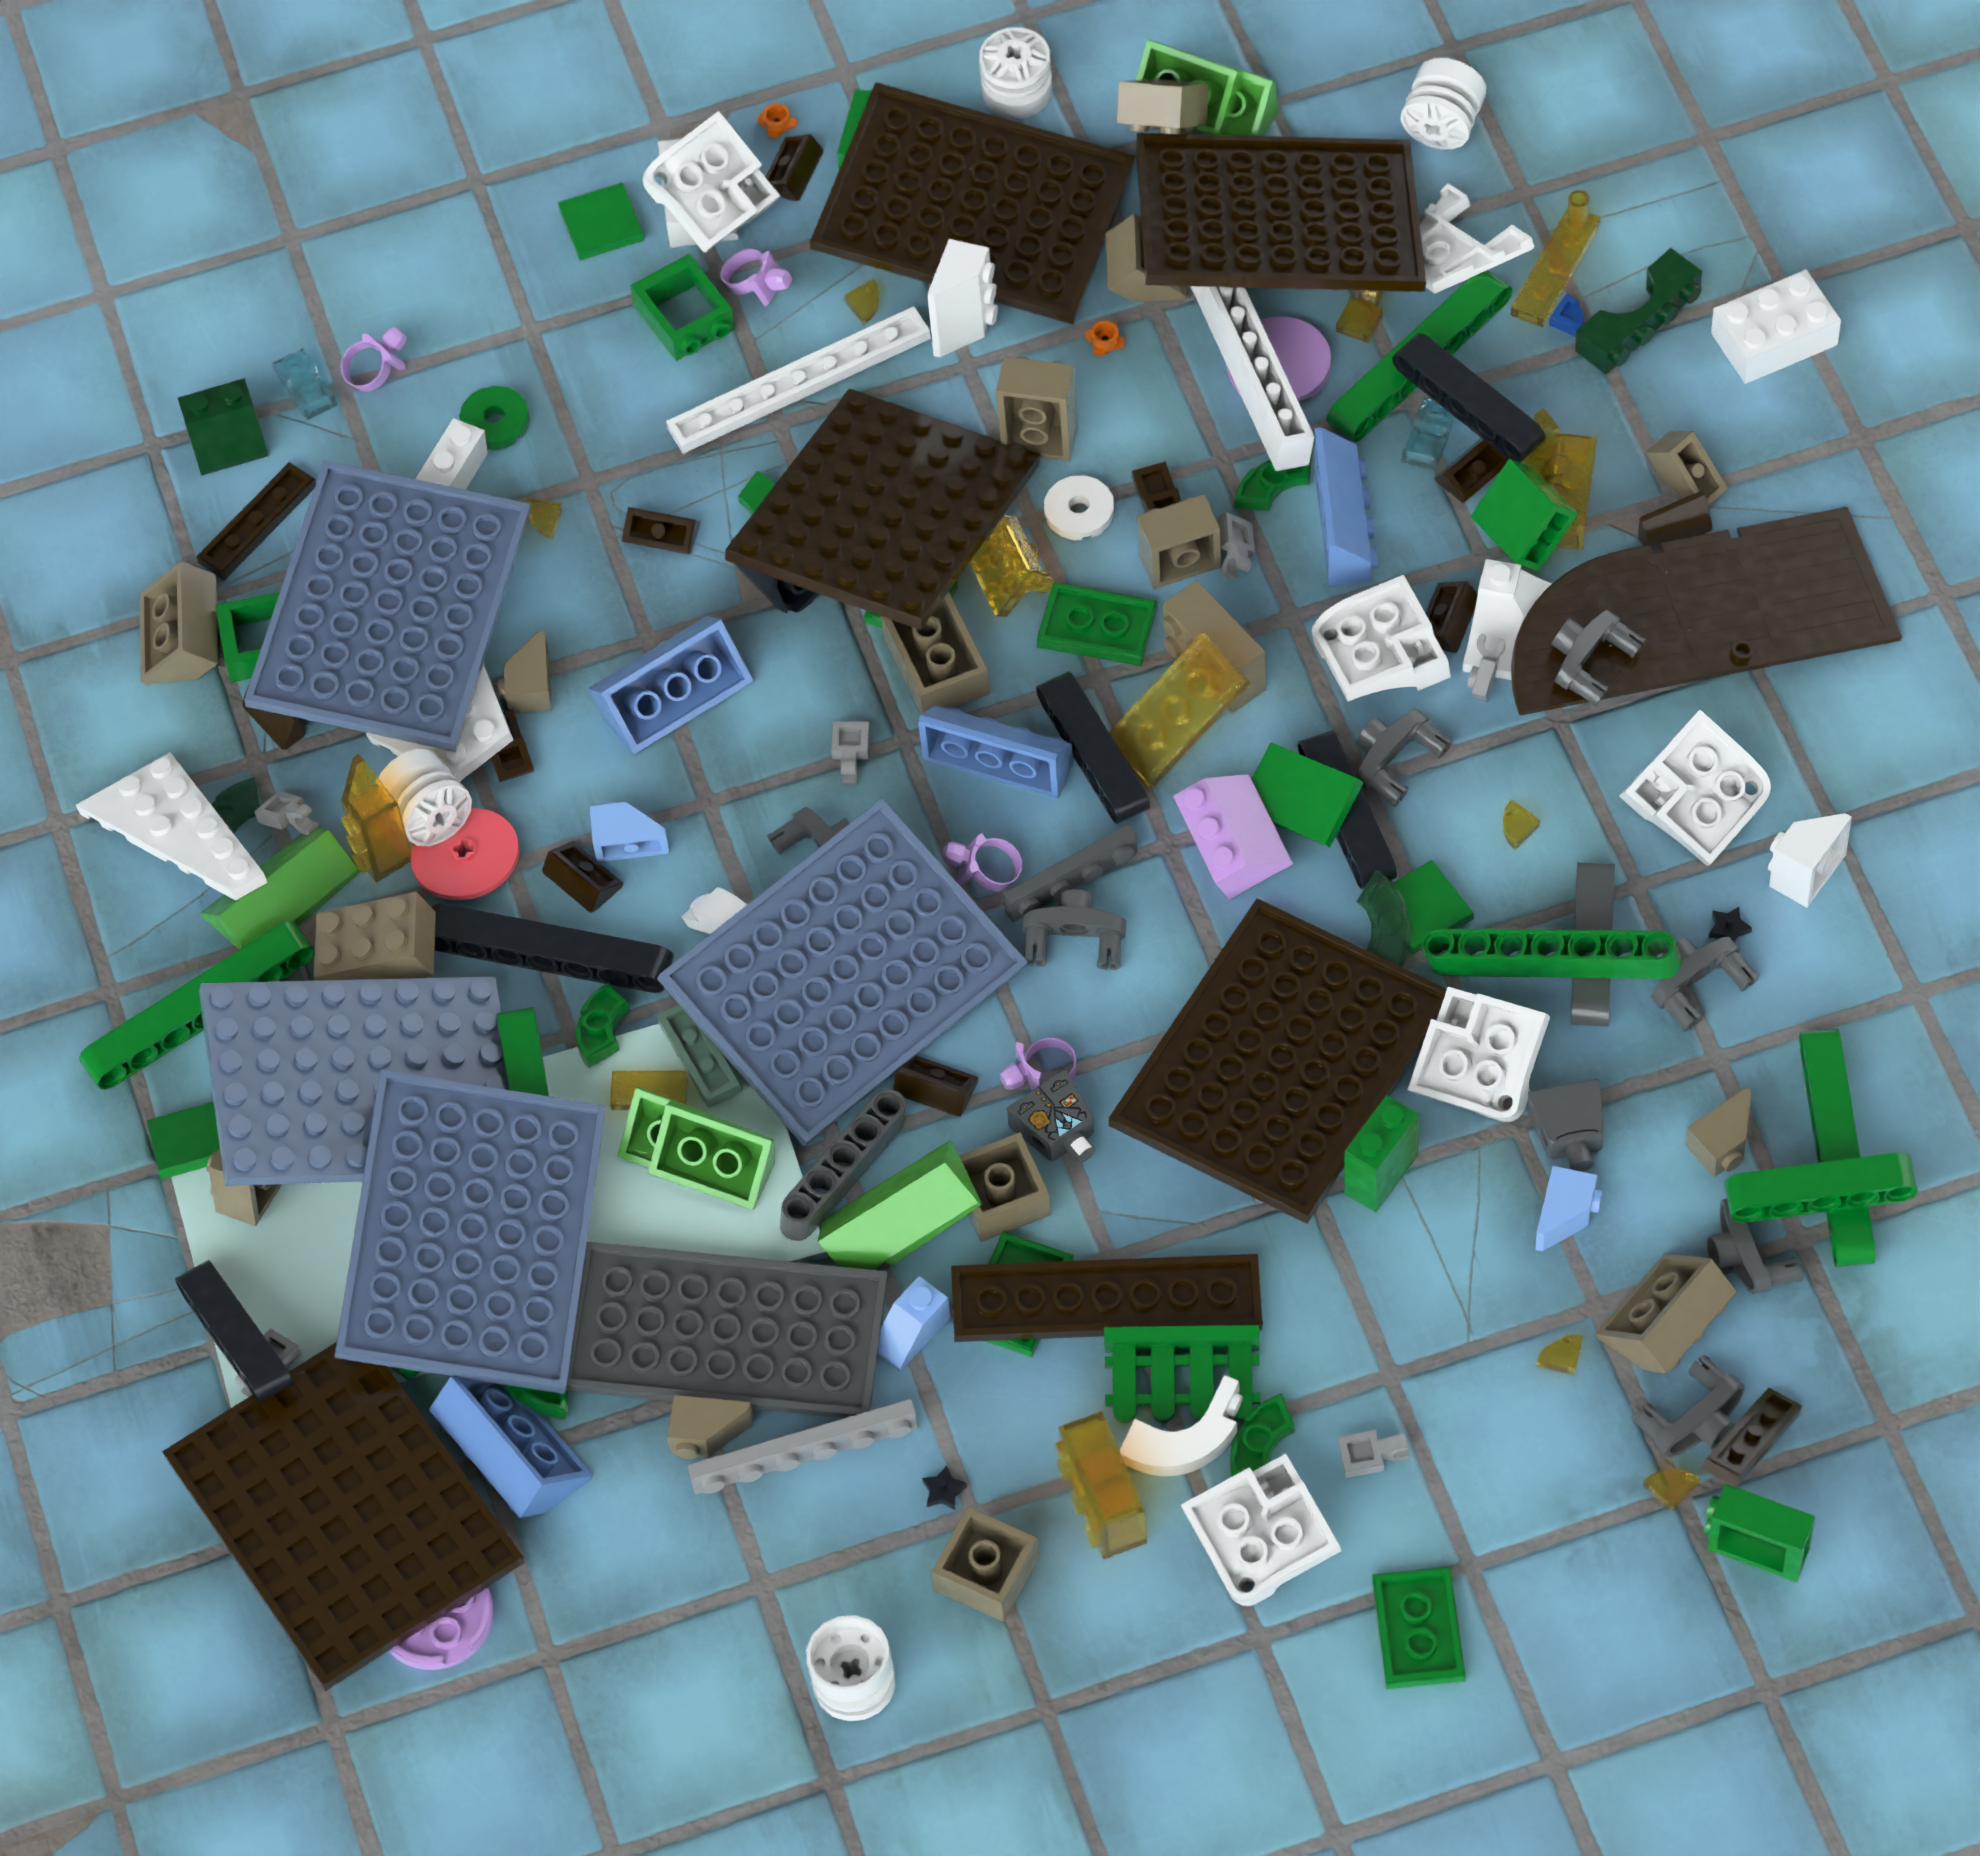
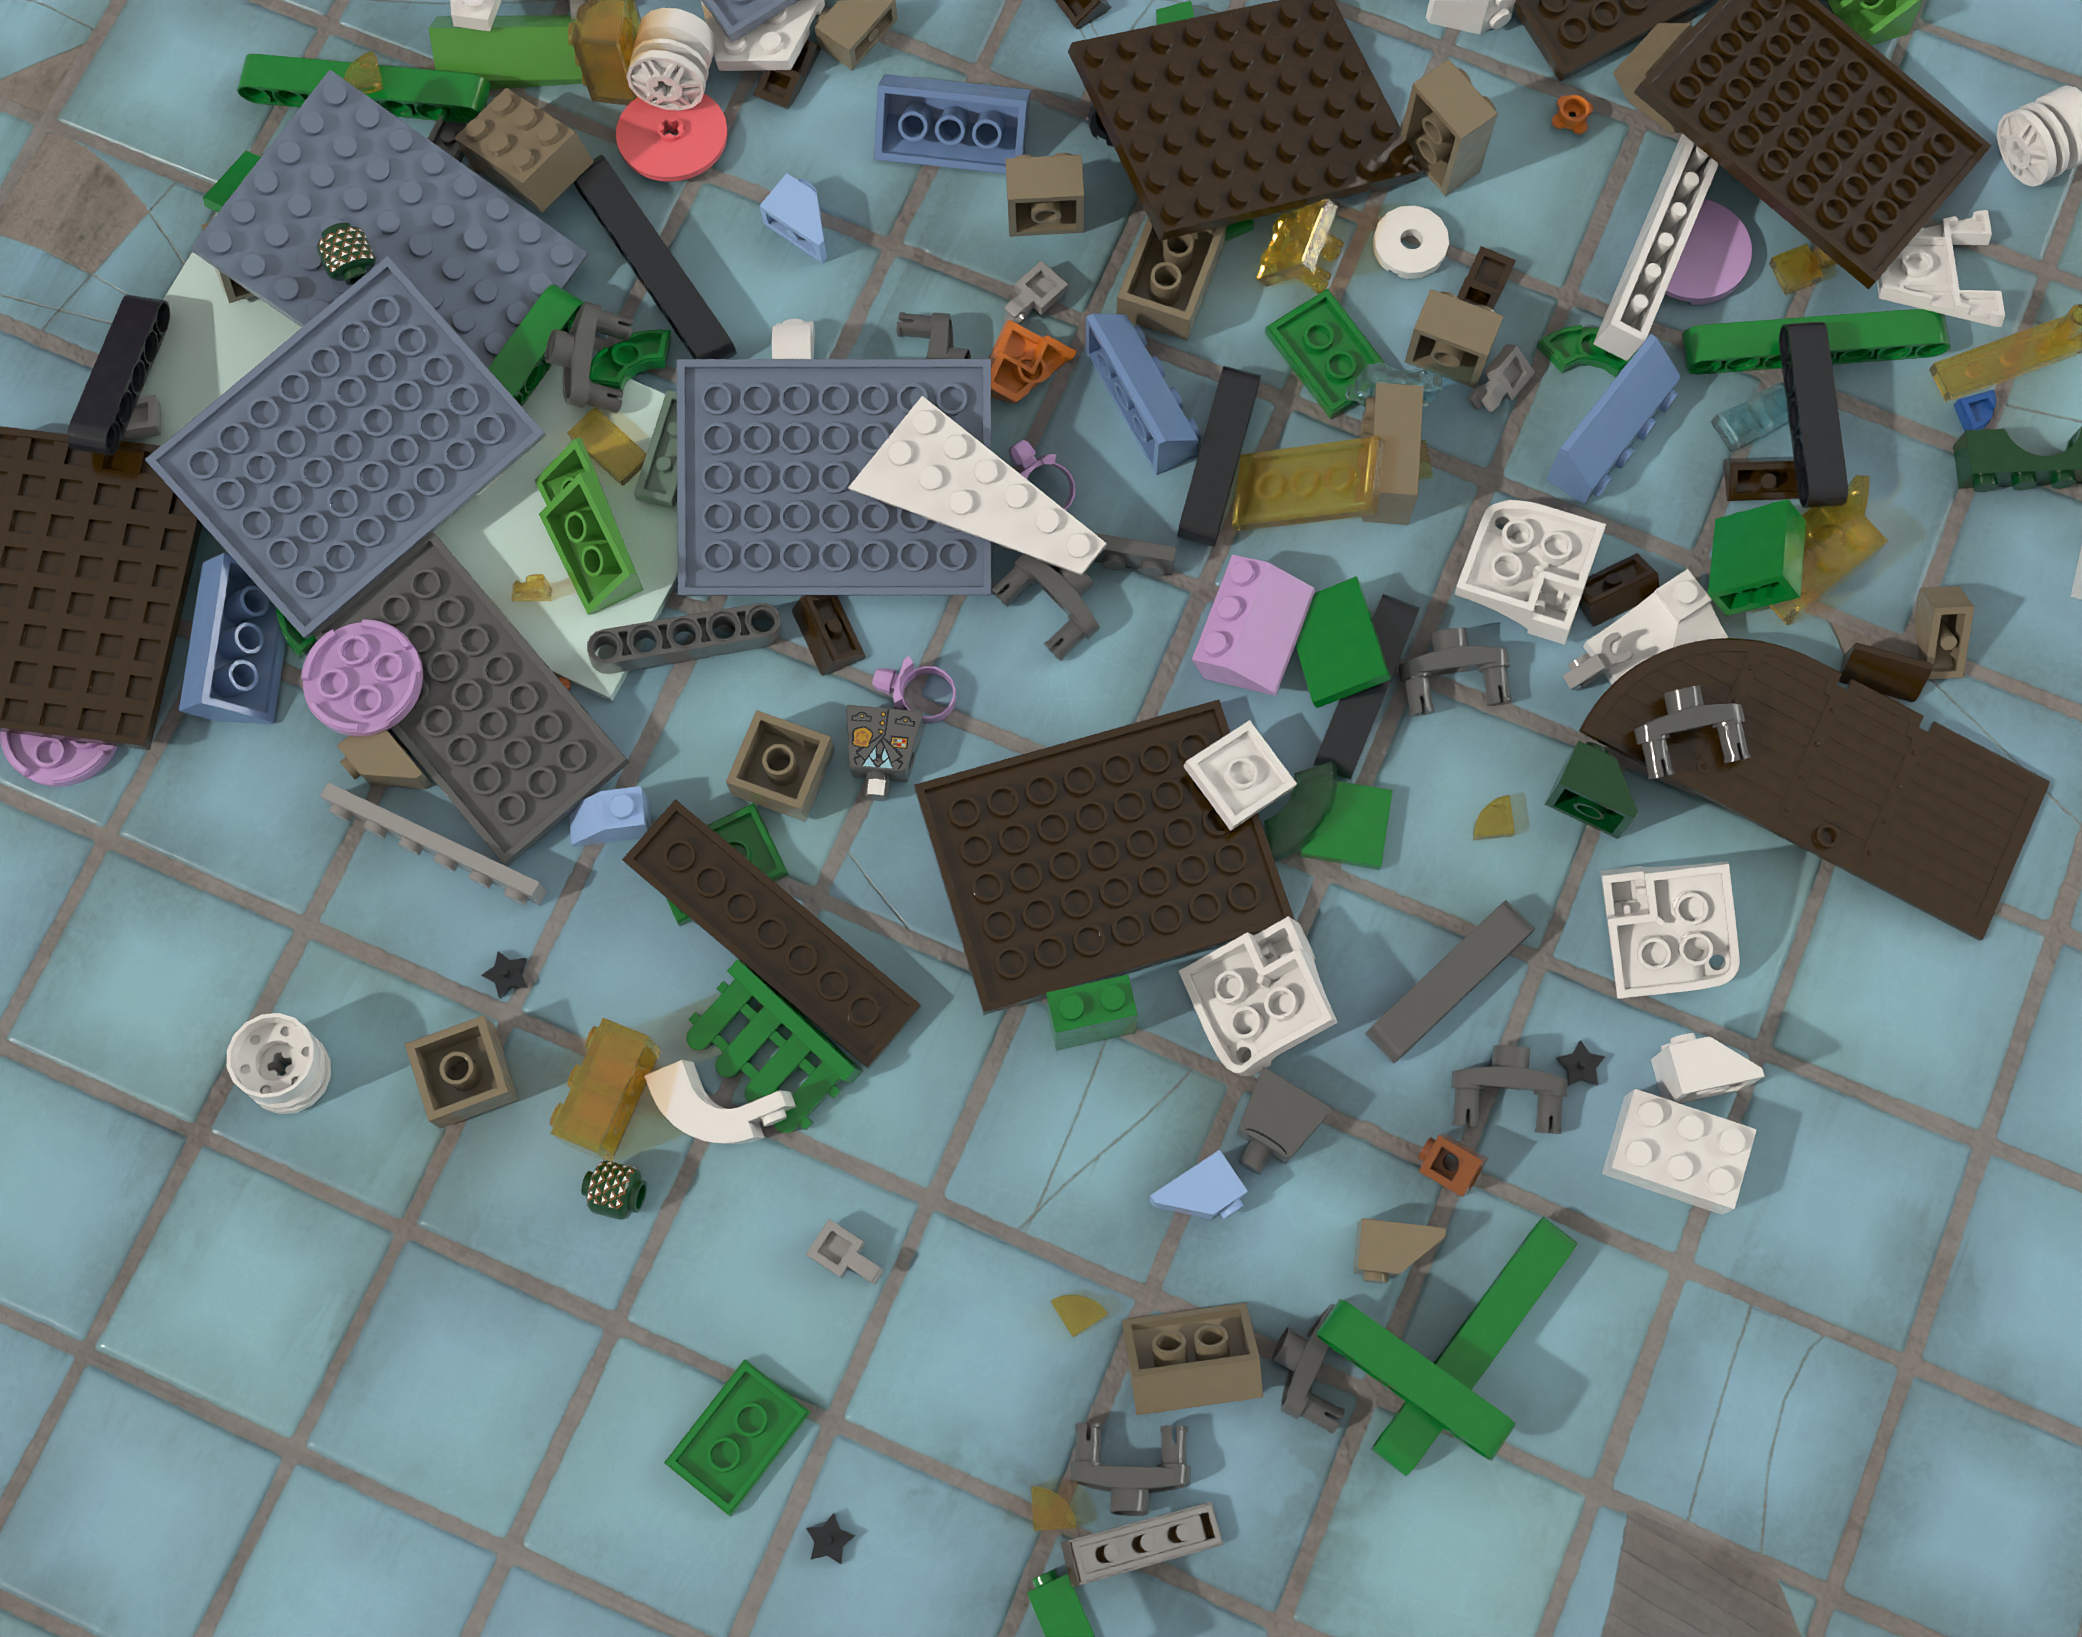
camera: 40 degrees right, 15 degrees up
(191, 985) = (365, 73): none -> clear yellow tile
(346, 1093) = (345, 252): none -> dark green head
(567, 1040) = (574, 354): none -> dark grey connector
(580, 876) = (739, 225): dark brown slope -> none
(639, 1377) = (362, 678): none -> lavender tile
(701, 1223) = (534, 589): none -> clear yellow tile
(794, 673) = (1045, 194): none -> dark tan brick
(894, 786) = (1023, 361): none -> orange slope
(900, 1212) = (681, 717): slope -> none
(941, 898) = (960, 483): none -> white wing
(1153, 603) = (1384, 373): none -> clear light blue plate
(1171, 1546) = (614, 1190): none -> dark green head
(1260, 1435) = (773, 1158): green tile -> none
(1261, 1529) = (692, 1242): white slope -> none
(1323, 928) = (1240, 775): none -> white plate
(1545, 1634) = (829, 1540): none -> black piece
(1565, 963) = (1403, 982): green beam -> none
(1566, 746) = (1593, 790): none -> dark green slope
(1716, 1038) = (1458, 1180): none -> dark orange brick
(1844, 920) = (1679, 1152): none -> white brick

